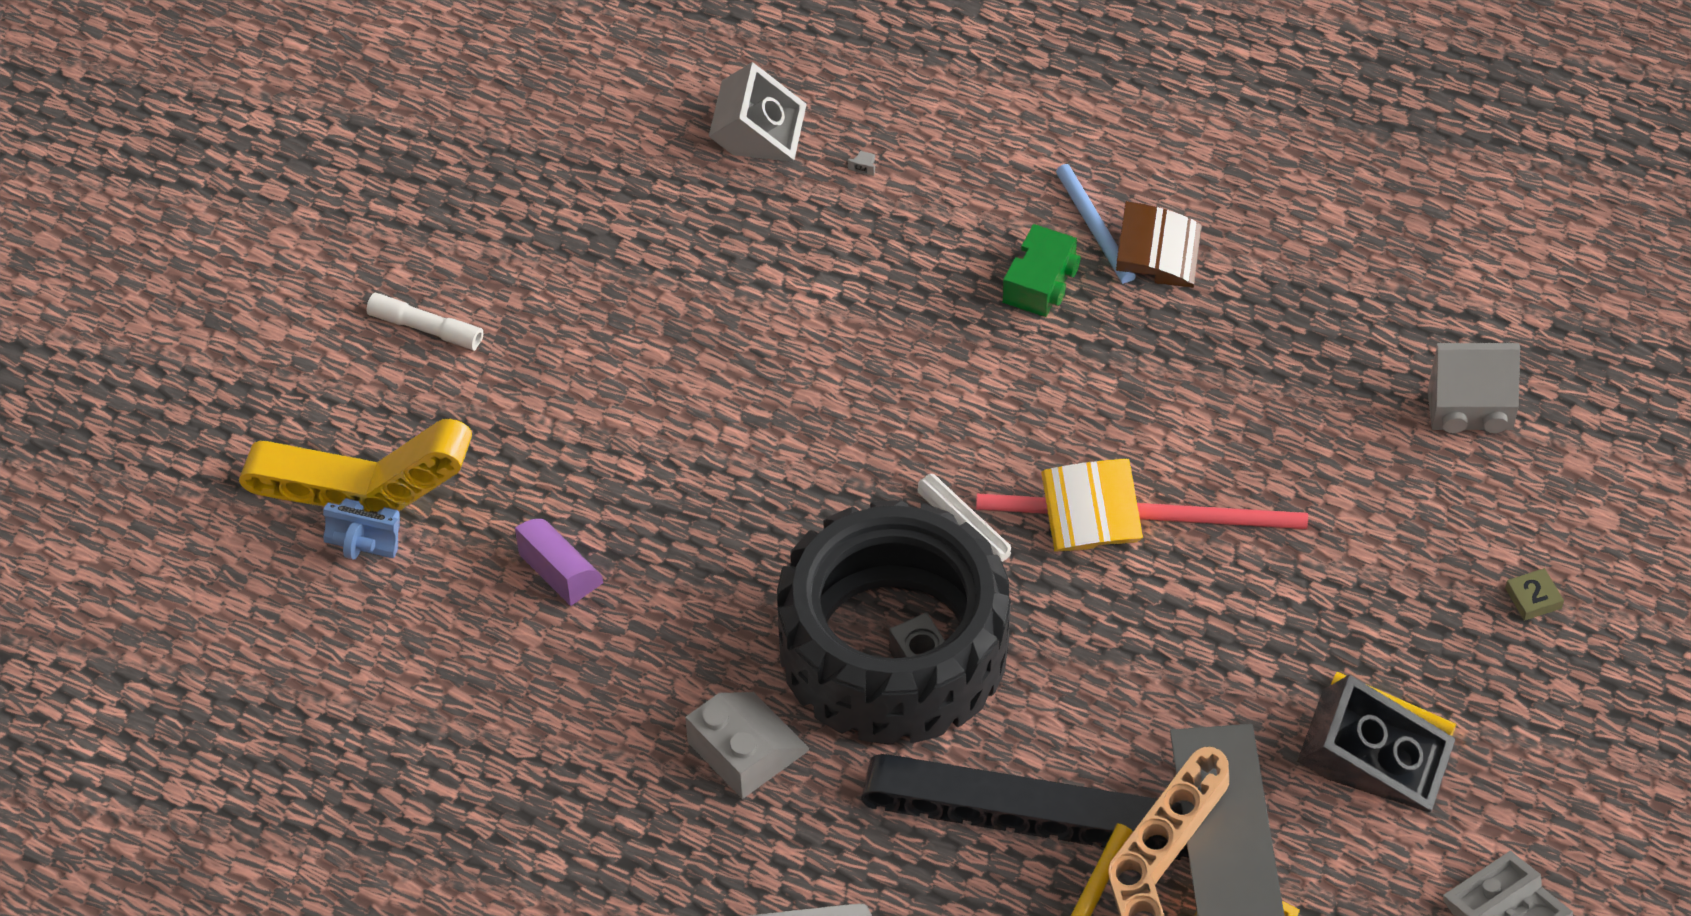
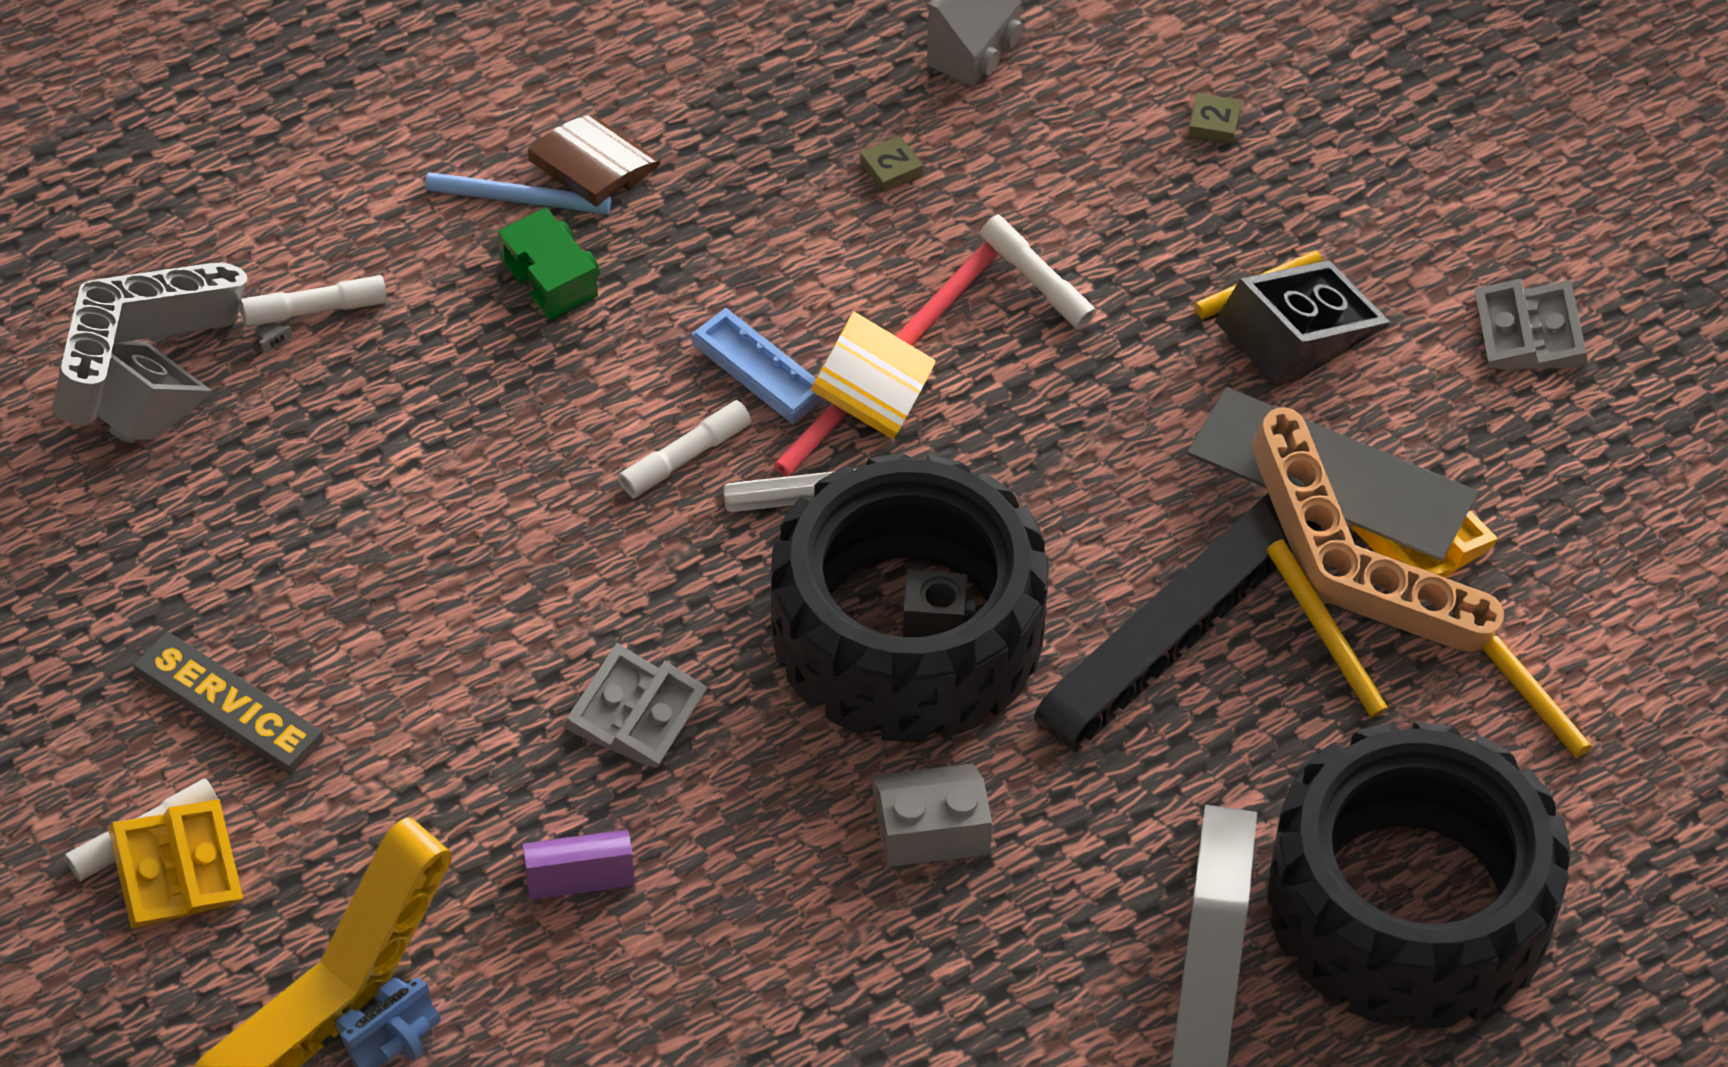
camera: 60 degrees left, 0 degrees up
(405, 349) = (175, 863): none -> yellow slope
(553, 310) = (229, 702): none -> dark grey tile
(710, 525) = (635, 706): none -> light grey slope
(782, 63) = (138, 309): none -> light grey beam
(921, 178) = (343, 296): none -> white piece
(923, 429) = (661, 464): none -> white piece
(1053, 432) = (757, 365): none -> light blue plate
(1271, 579) = (1057, 291): none -> white piece
(1309, 417) = (891, 163): none -> olive tile

